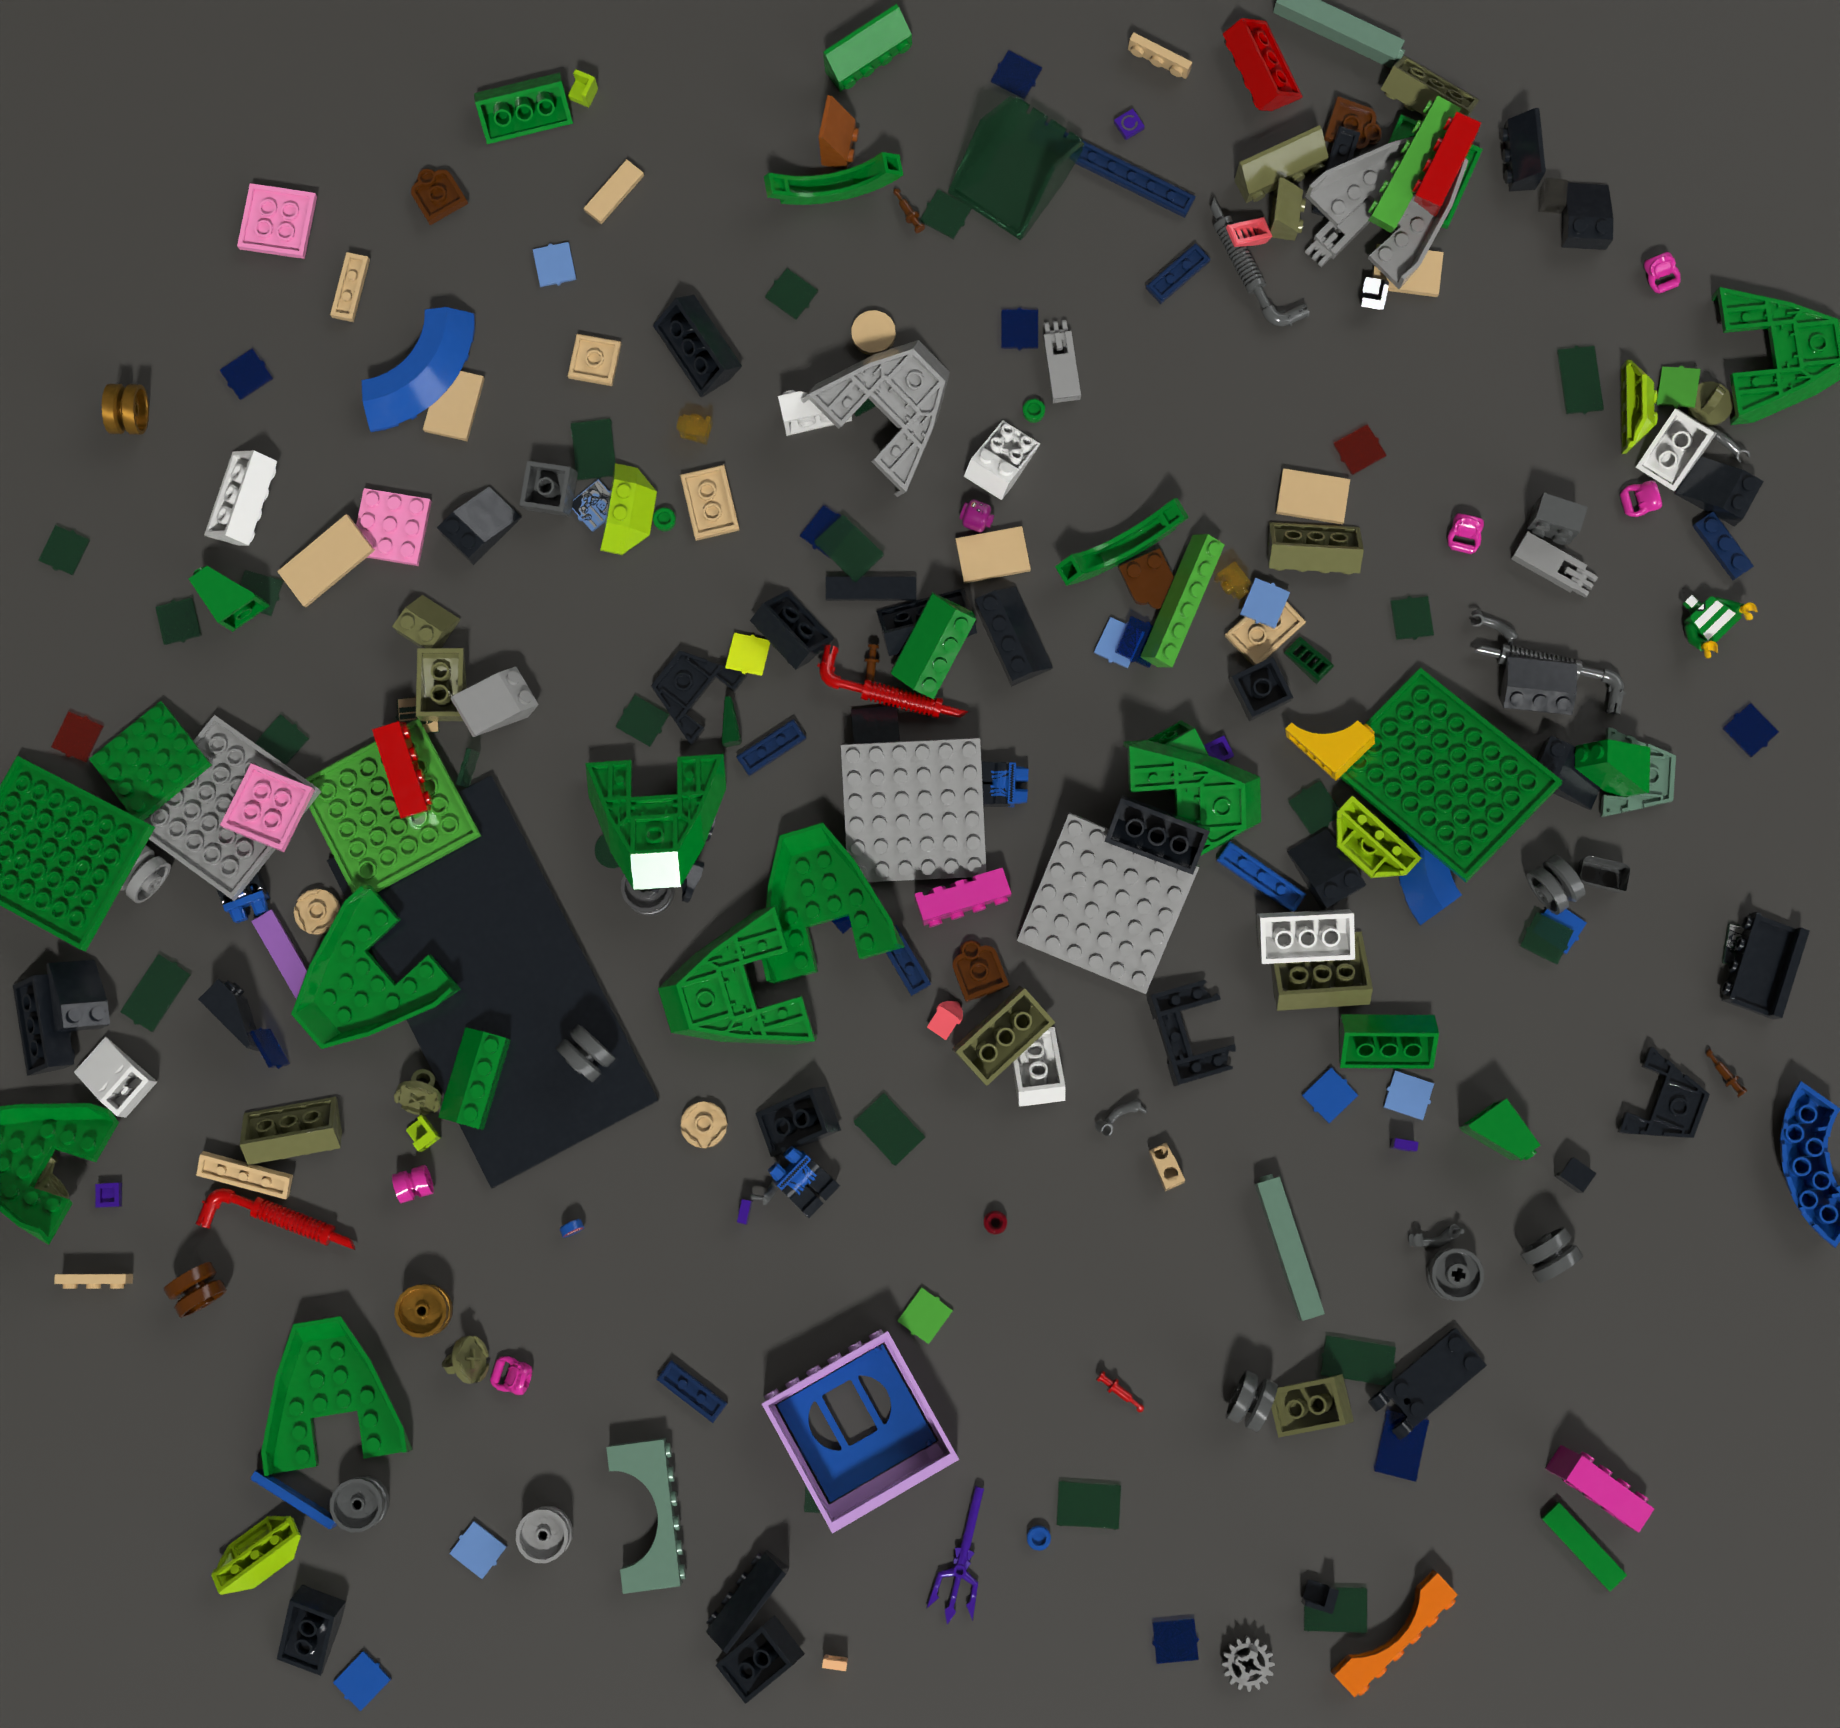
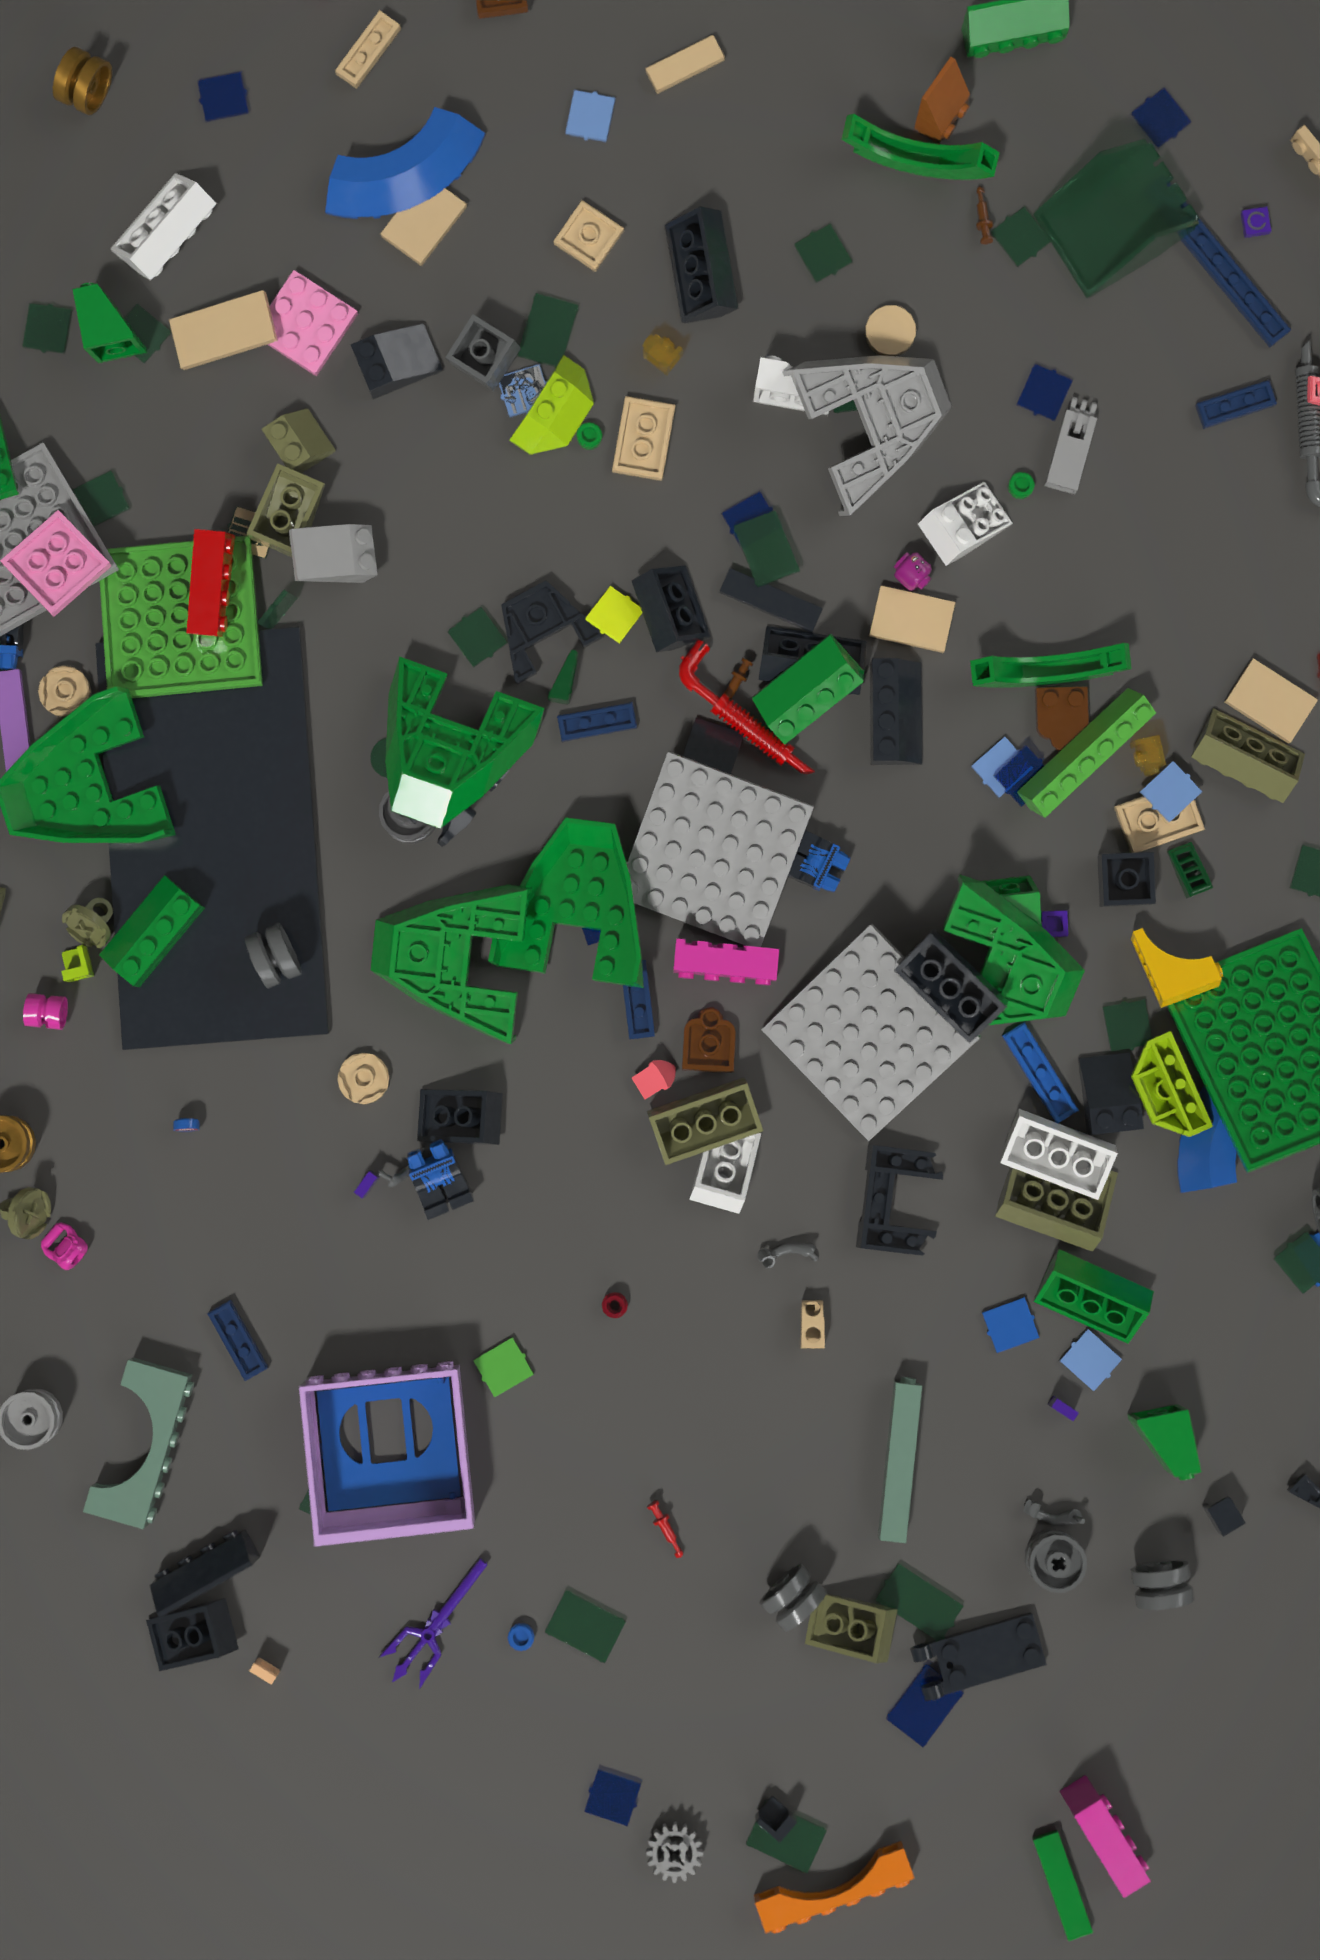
camera: 20 degrees right, 5 degrees up
(889, 1129) = (548, 1164): clear green piece -> none

